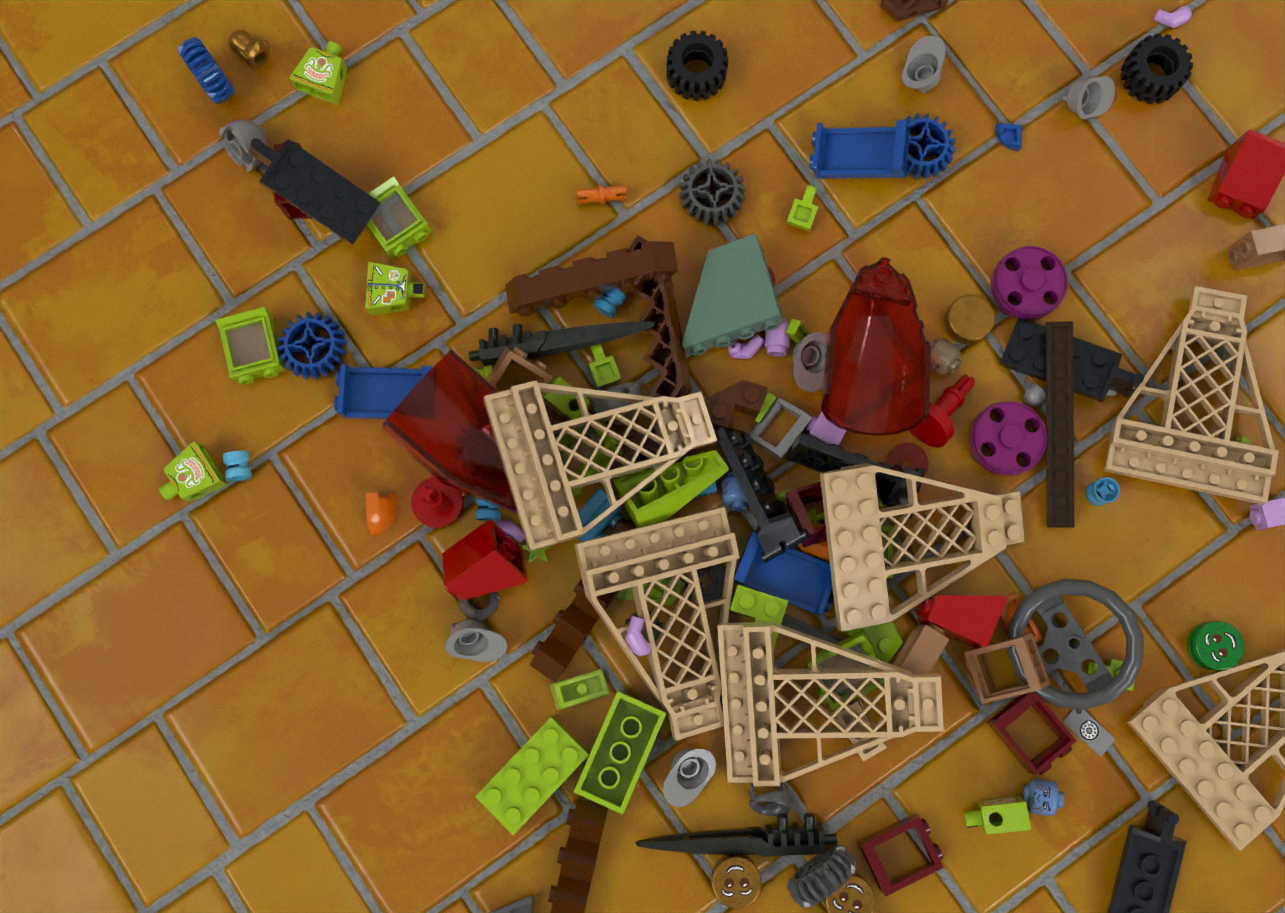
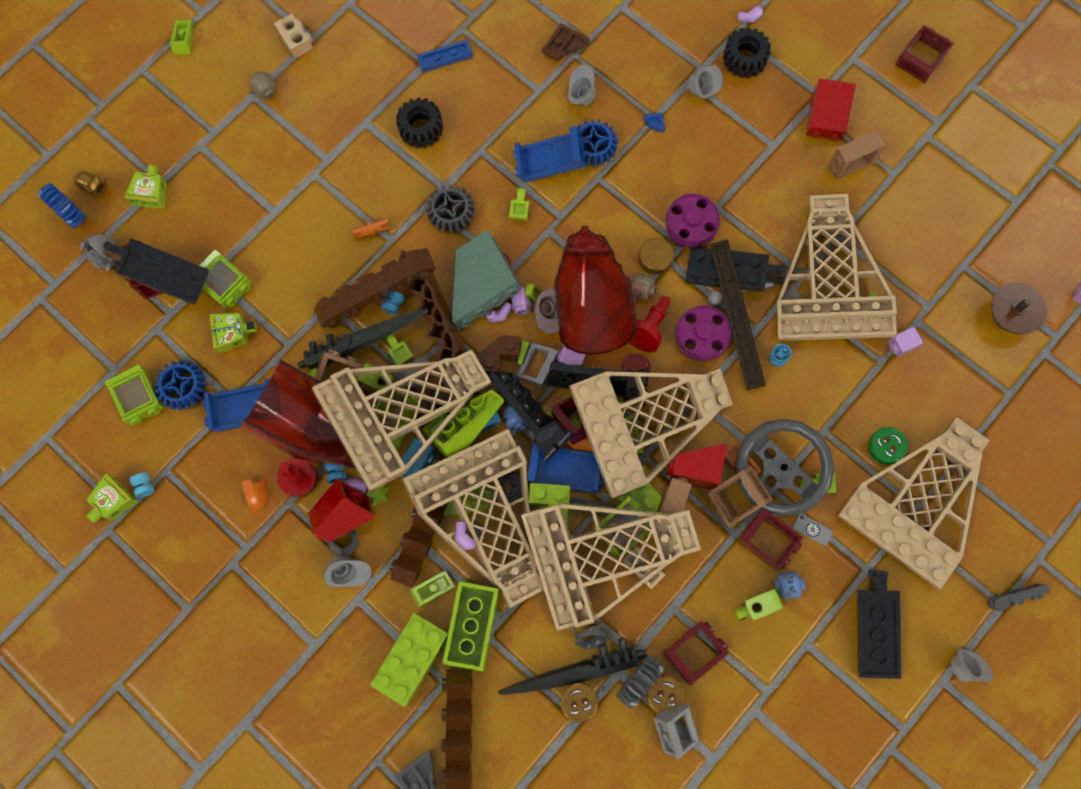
camera: 10 degrees left, 5 degrees down
(688, 776) = (526, 632): light grey piece -> none

